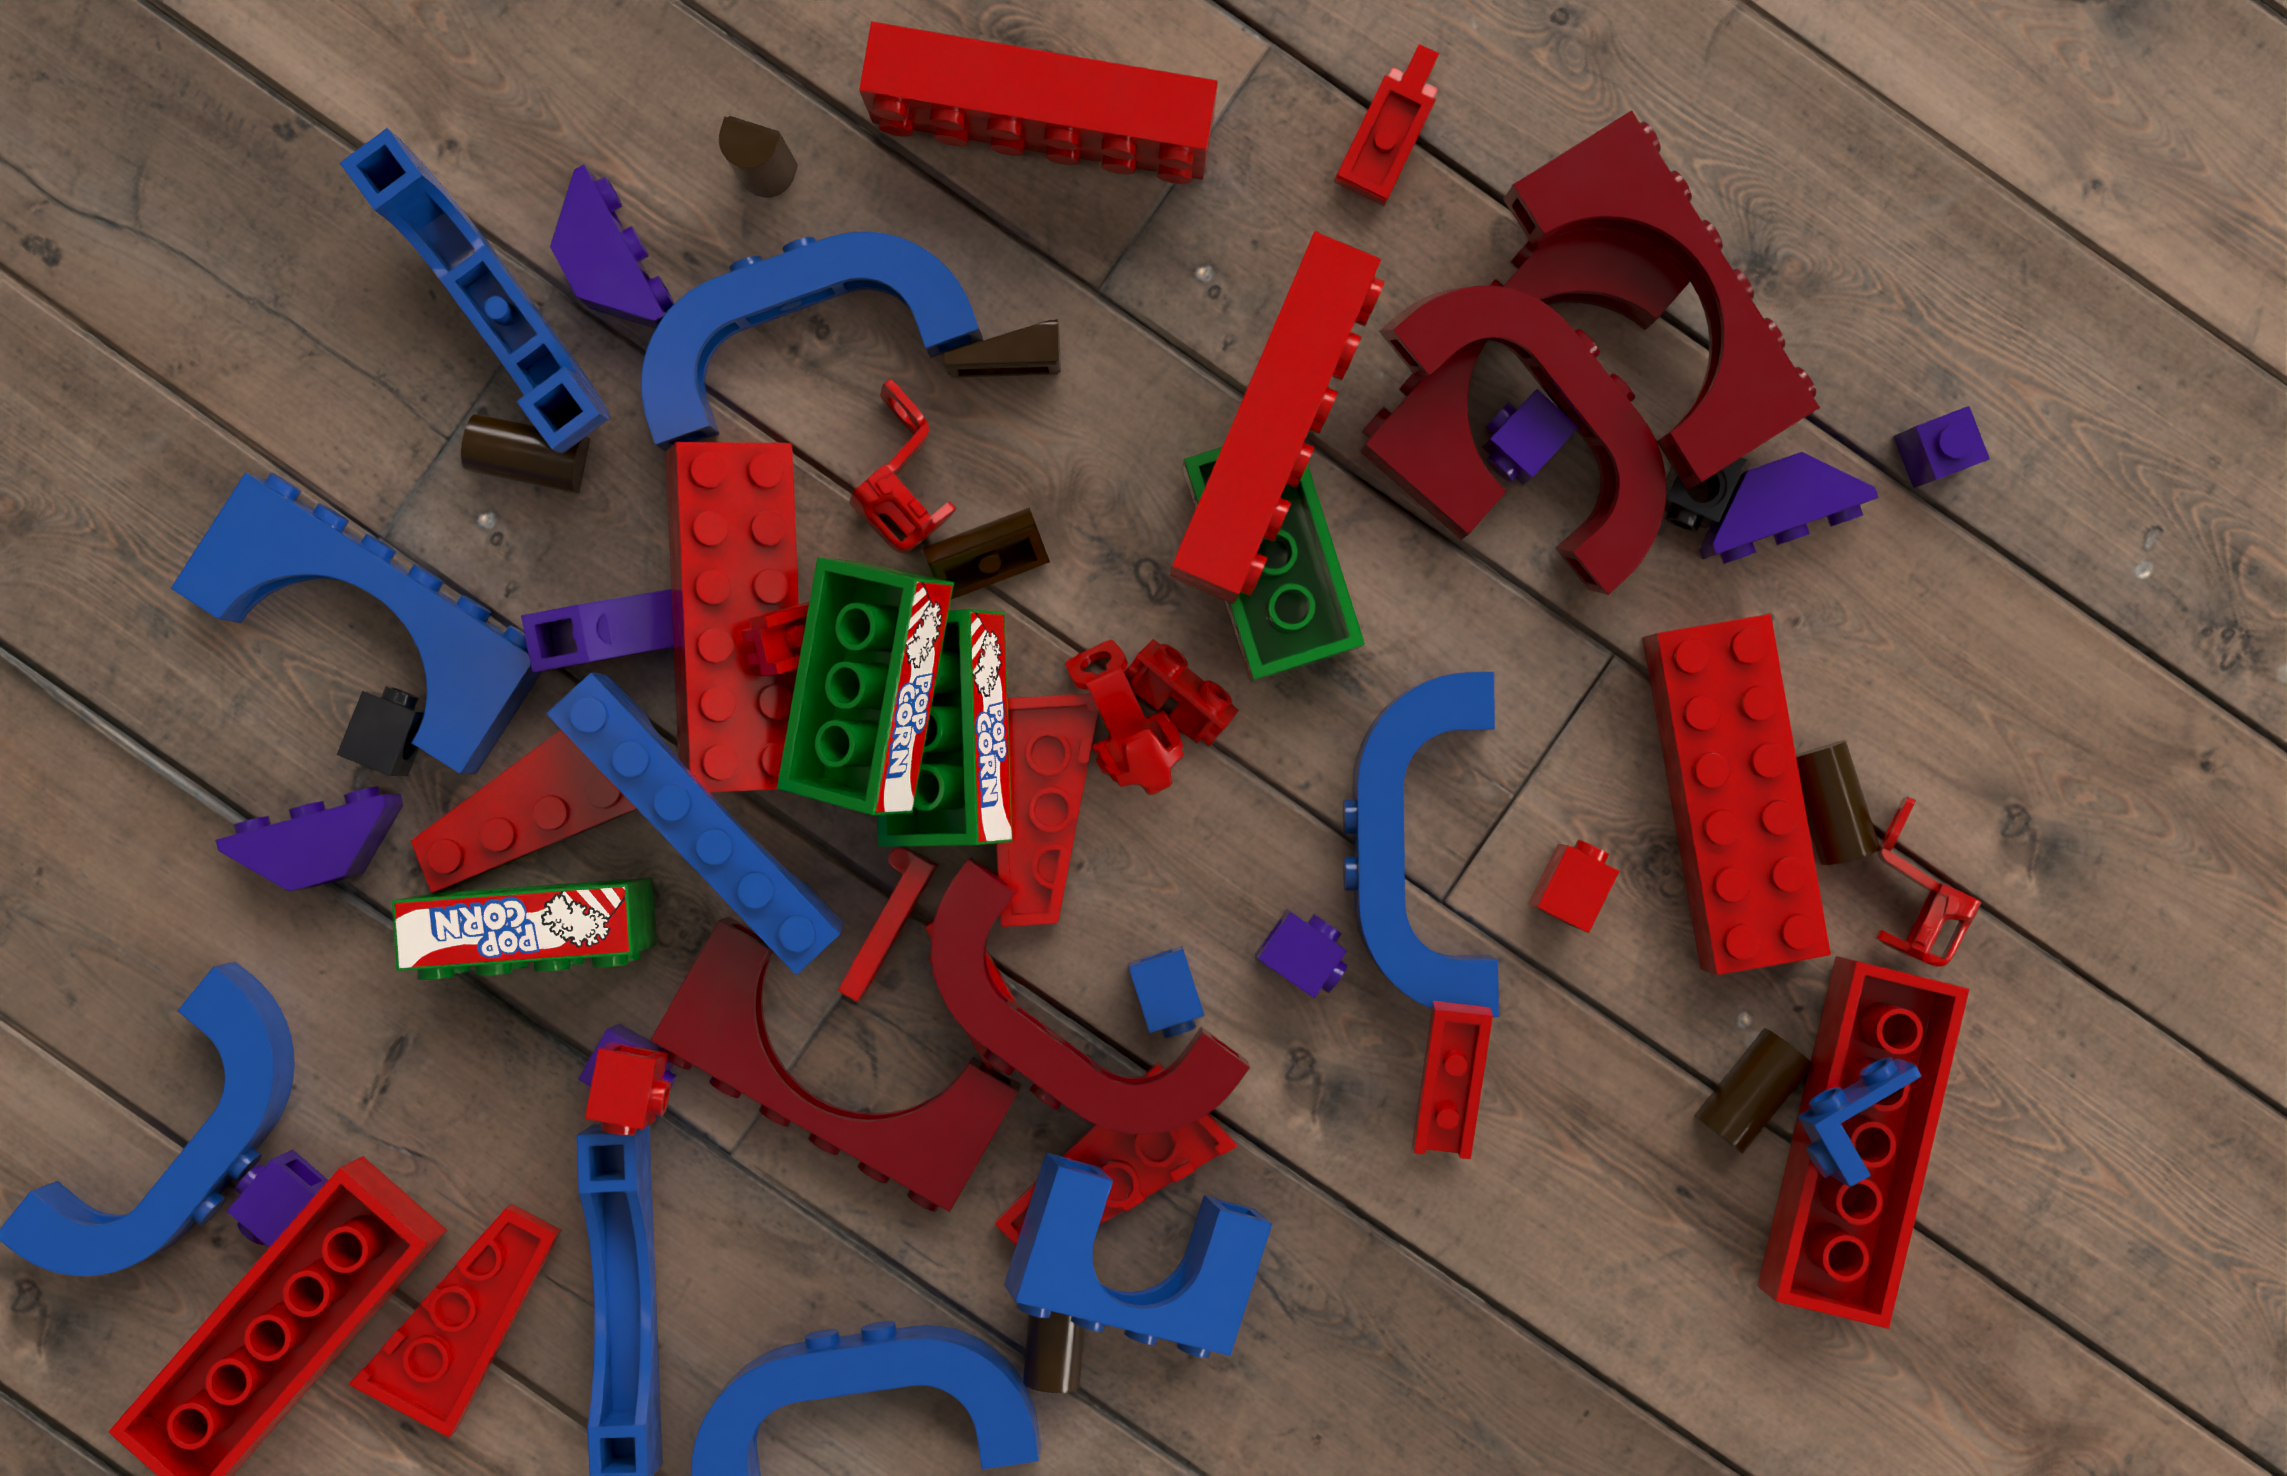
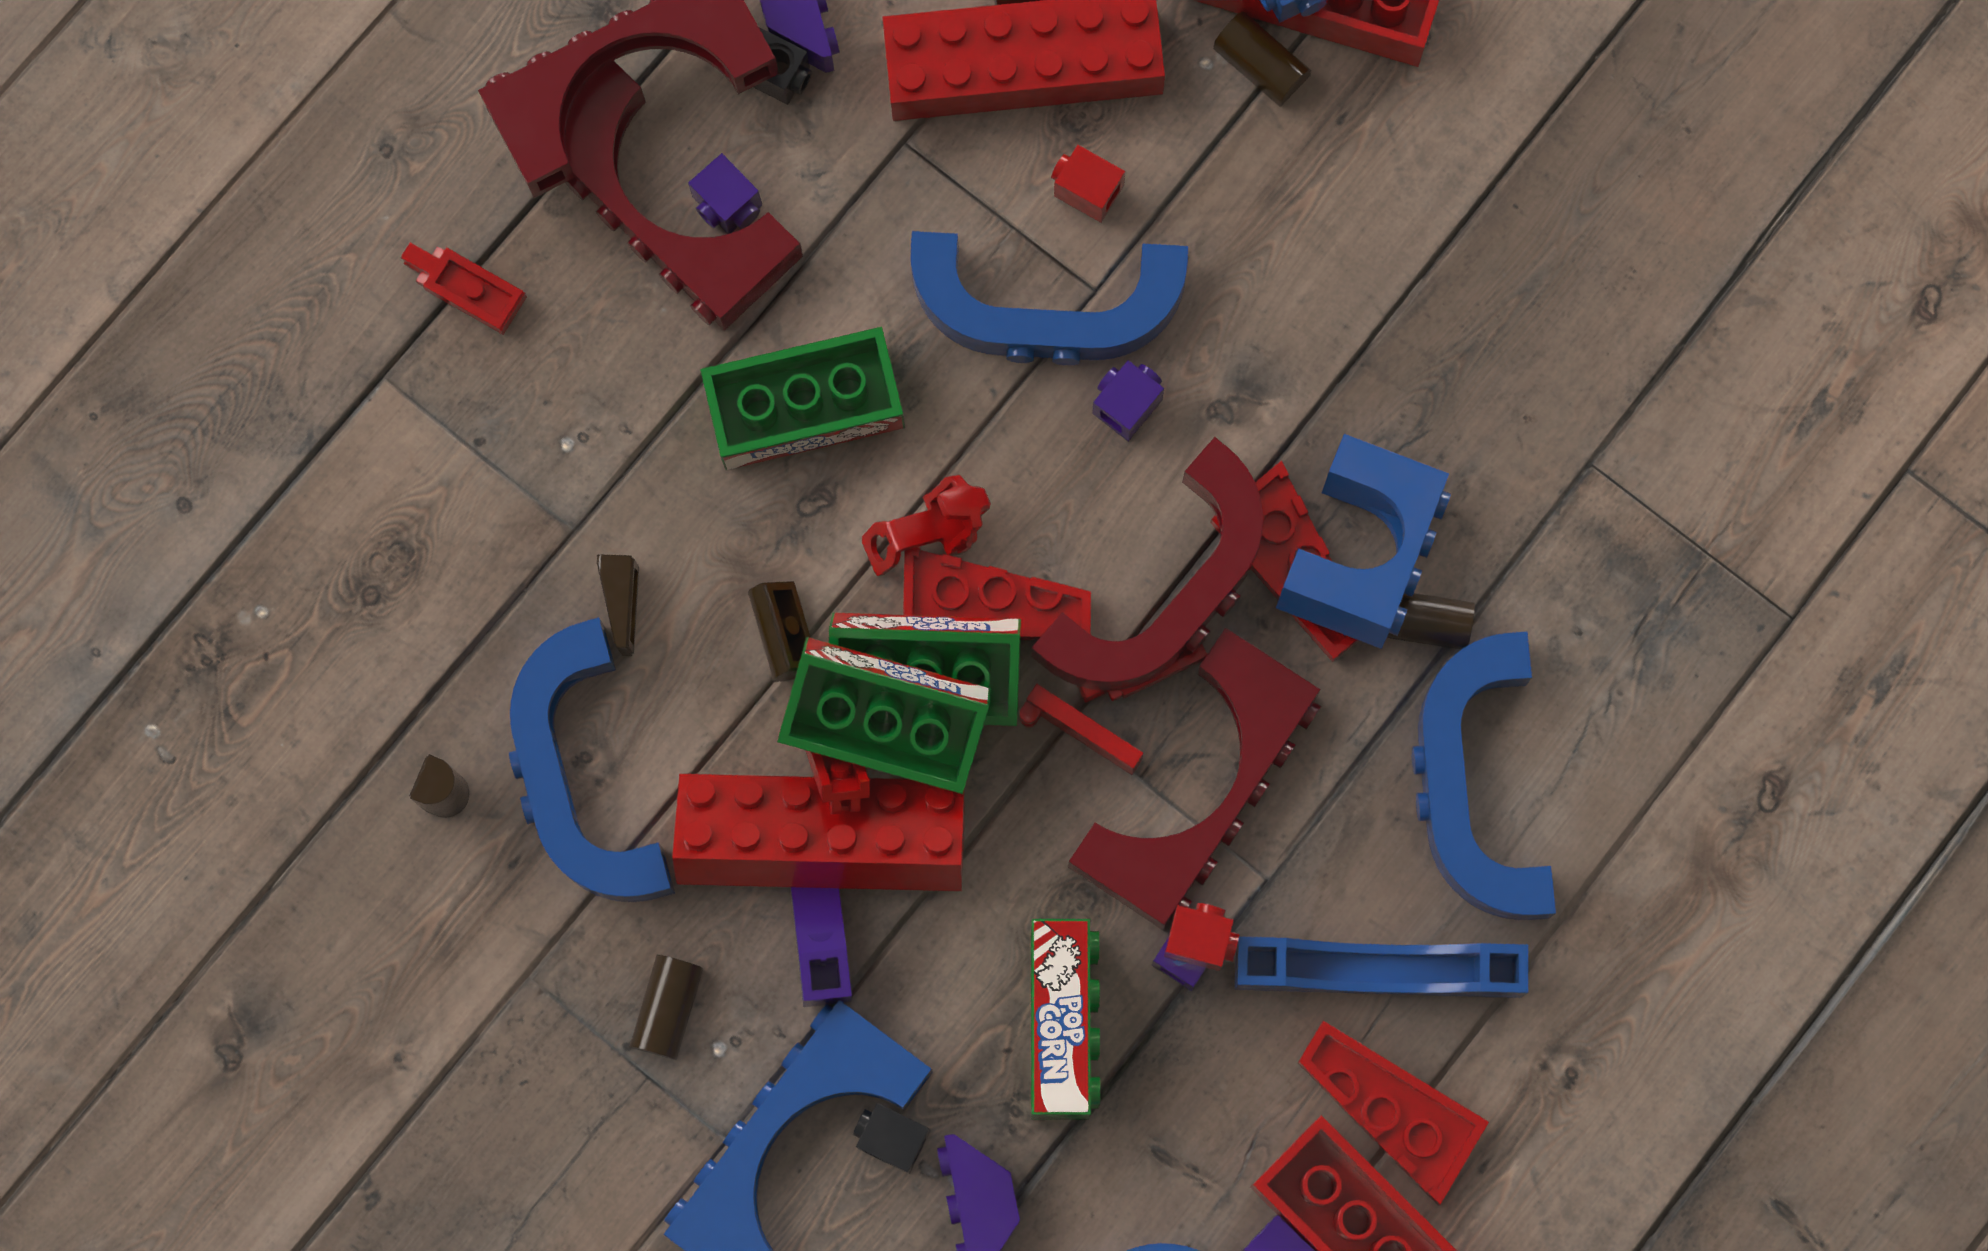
camera: 80 degrees left, 10 degrees down
(412, 199) = (461, 1064): blue arch -> none
(519, 812) = (957, 1010): red wing -> none
(603, 257) = (511, 924): dark purple slope -> none
(649, 774) = (1053, 806): blue arch -> none
(887, 495) = (729, 712): red piece -> none
(1038, 102) = (420, 555): red brick -> none
(1164, 672) = (920, 468): red hinge -> none
(1167, 992) = (1152, 508): blue brick -> none
(1278, 409) = (700, 374): red brick -> none
(1452, 1078) = (1236, 286): red hinge -> none
(1566, 367) = (671, 158): dark red arch -> none

